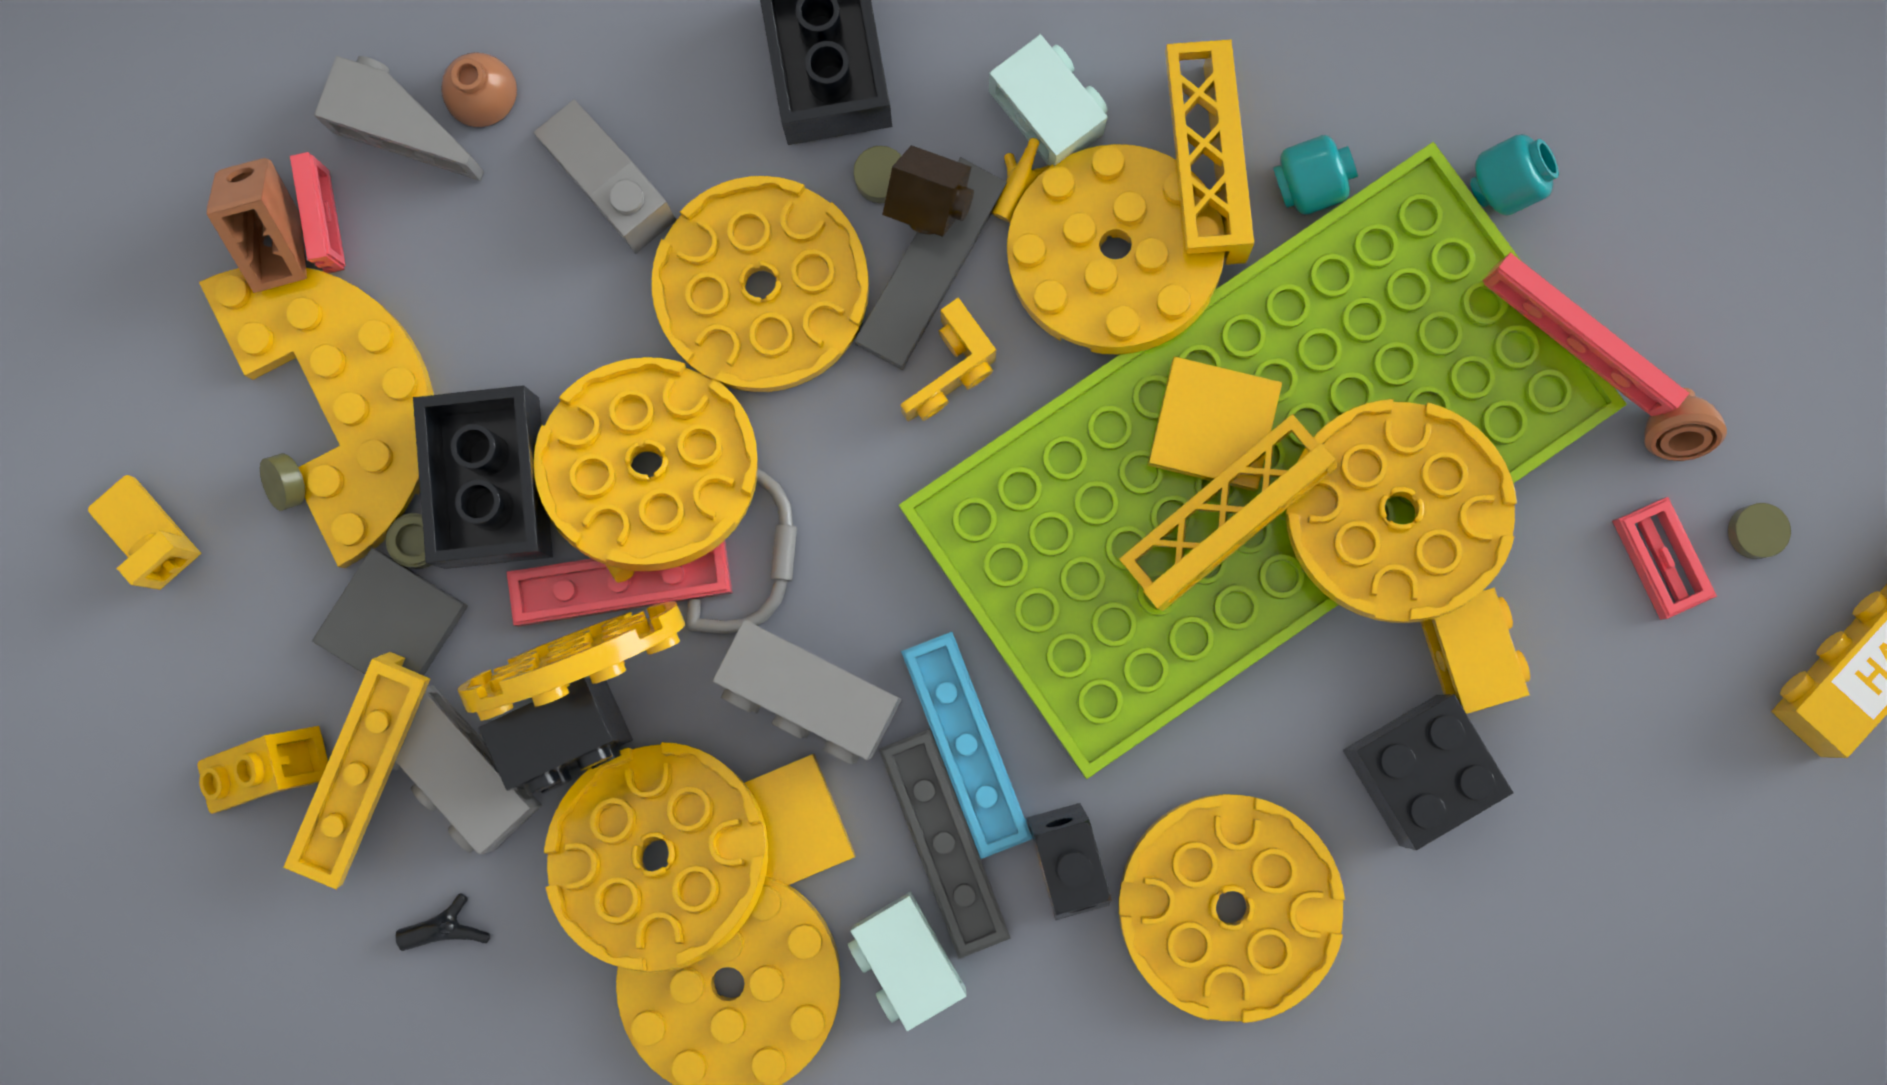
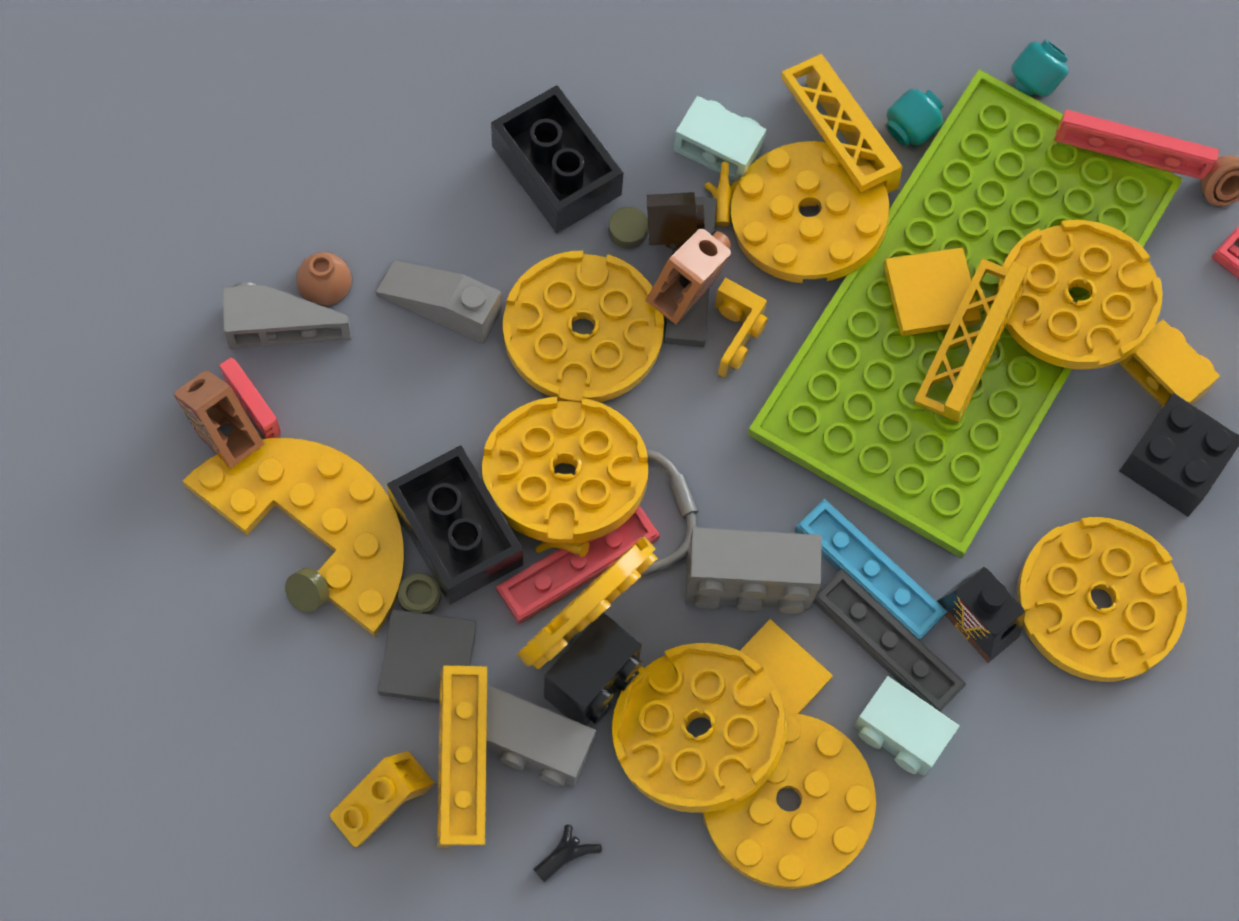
camera: 35 degrees left, 15 degrees down
(144, 533) = (219, 667): yellow bracket -> none
(914, 274) = (699, 261): none -> nougat torso

